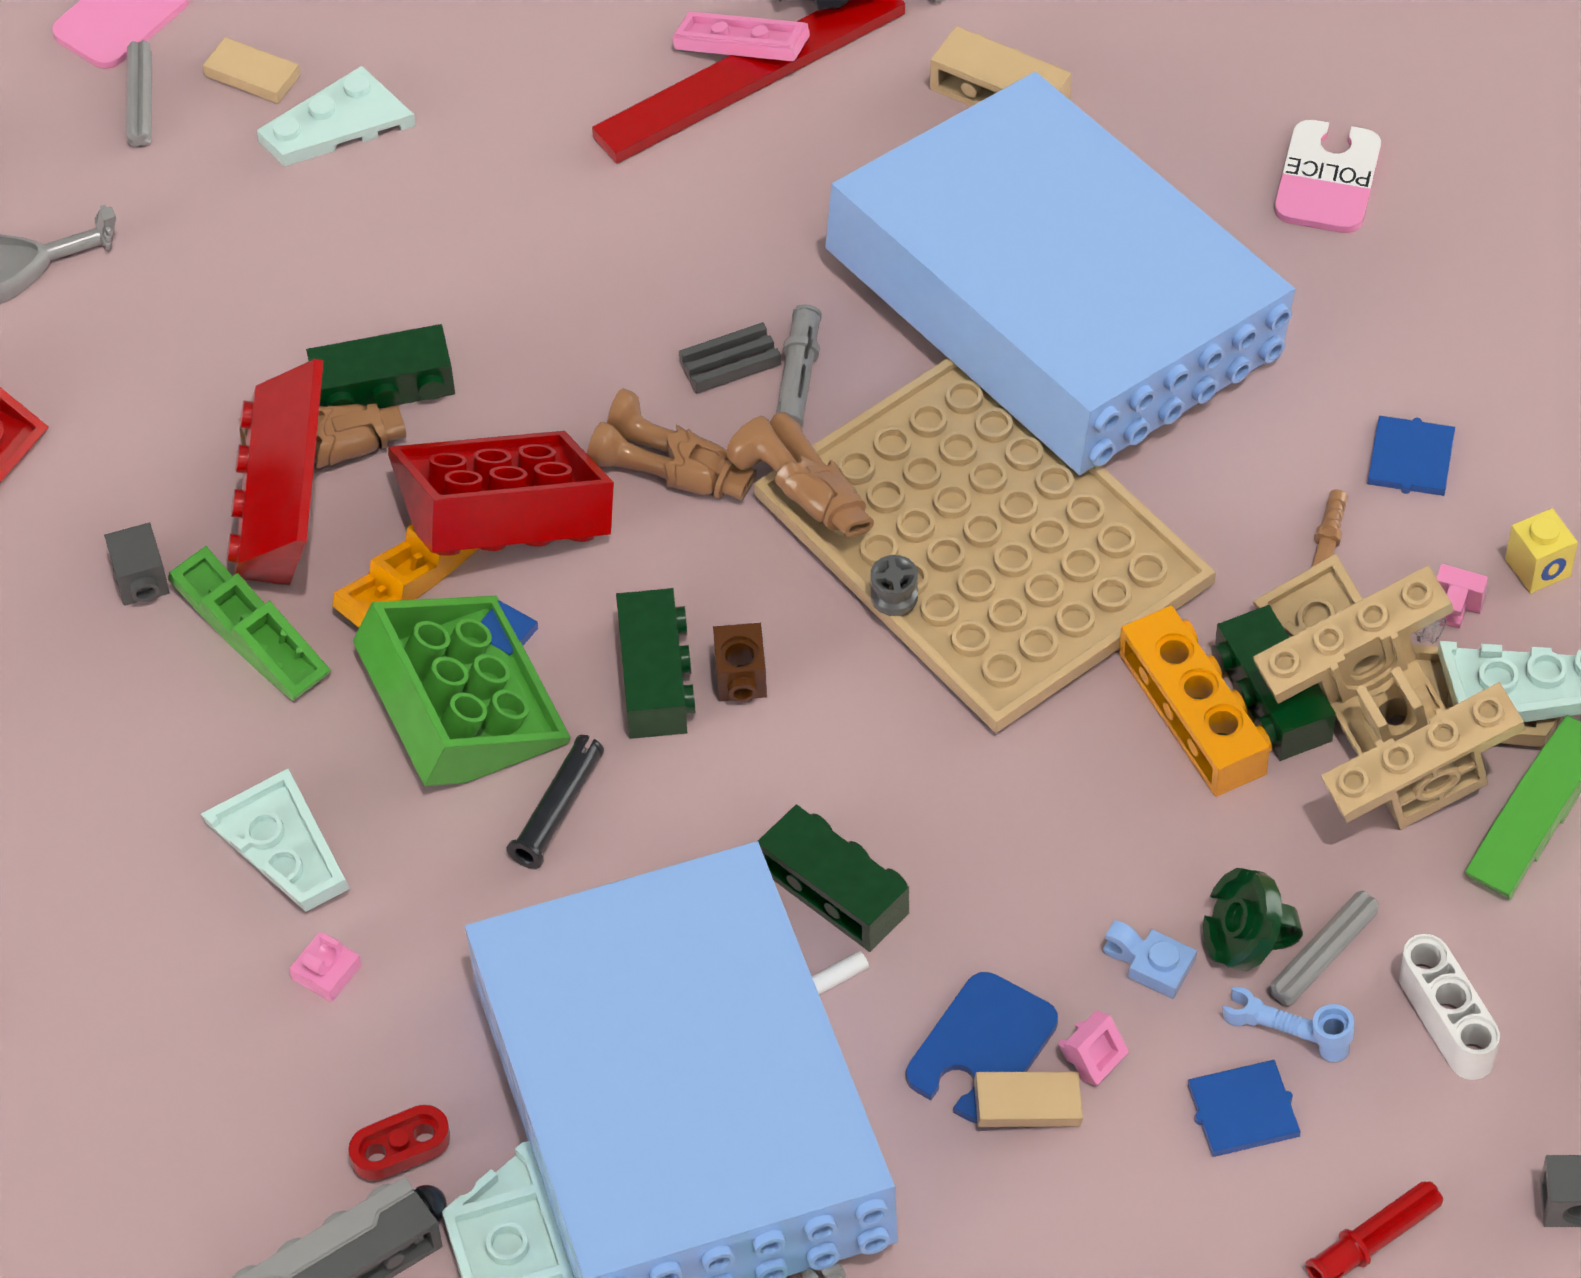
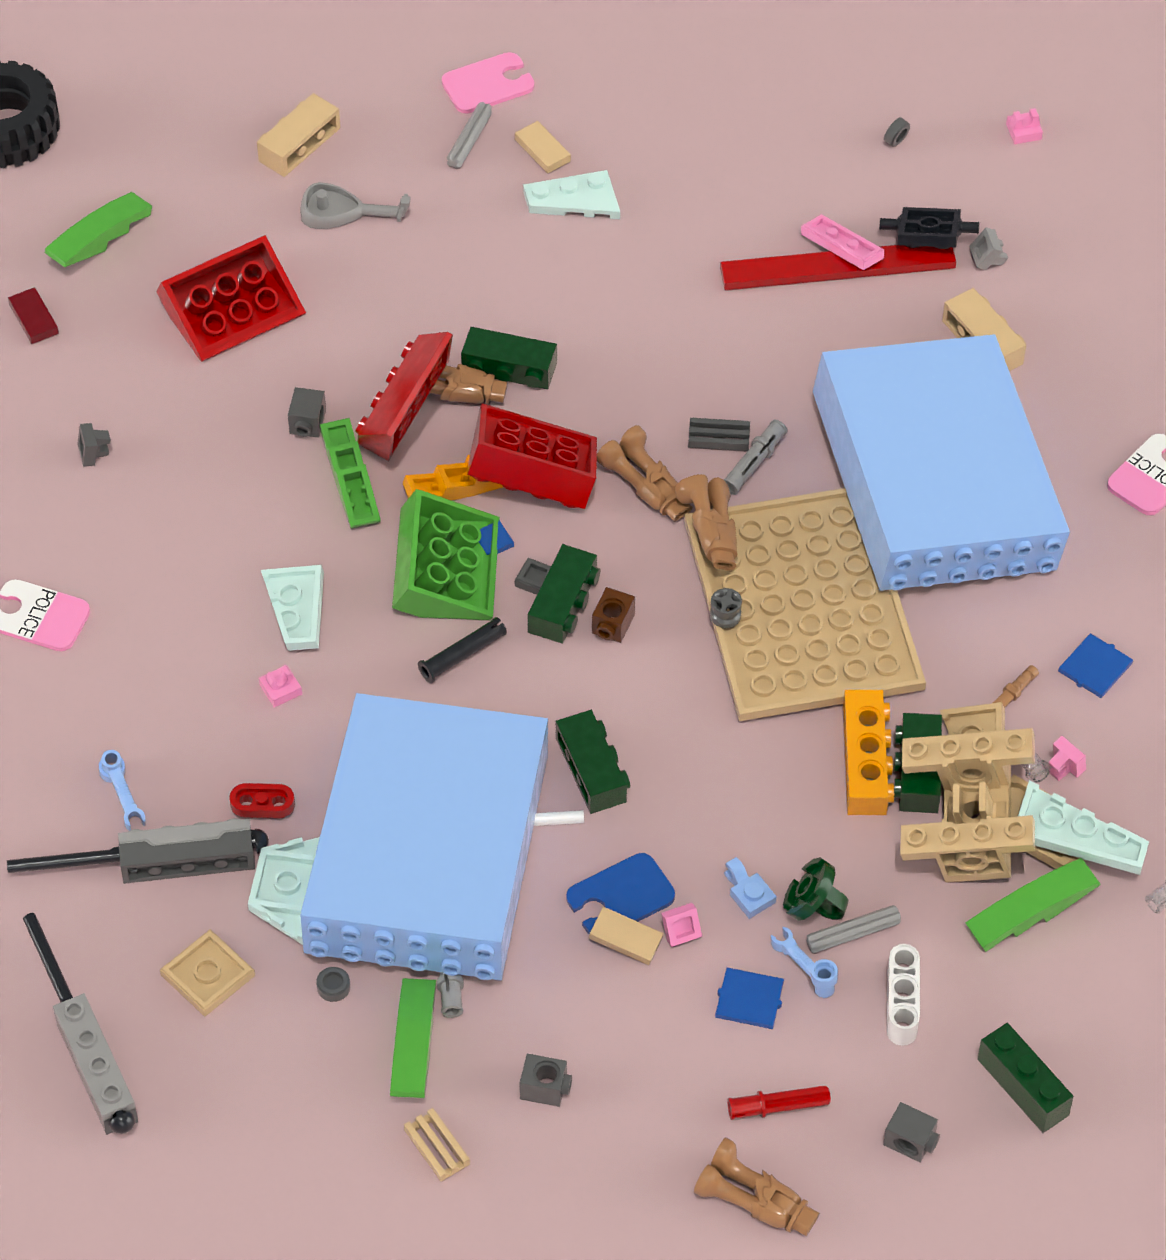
camera: 25 degrees right, 0 degrees up
(160, 1202) = (115, 775): none -> light blue brick
(595, 657) = (532, 576): none -> dark grey tile
(1541, 550) = (1133, 755): light yellow brick -> none

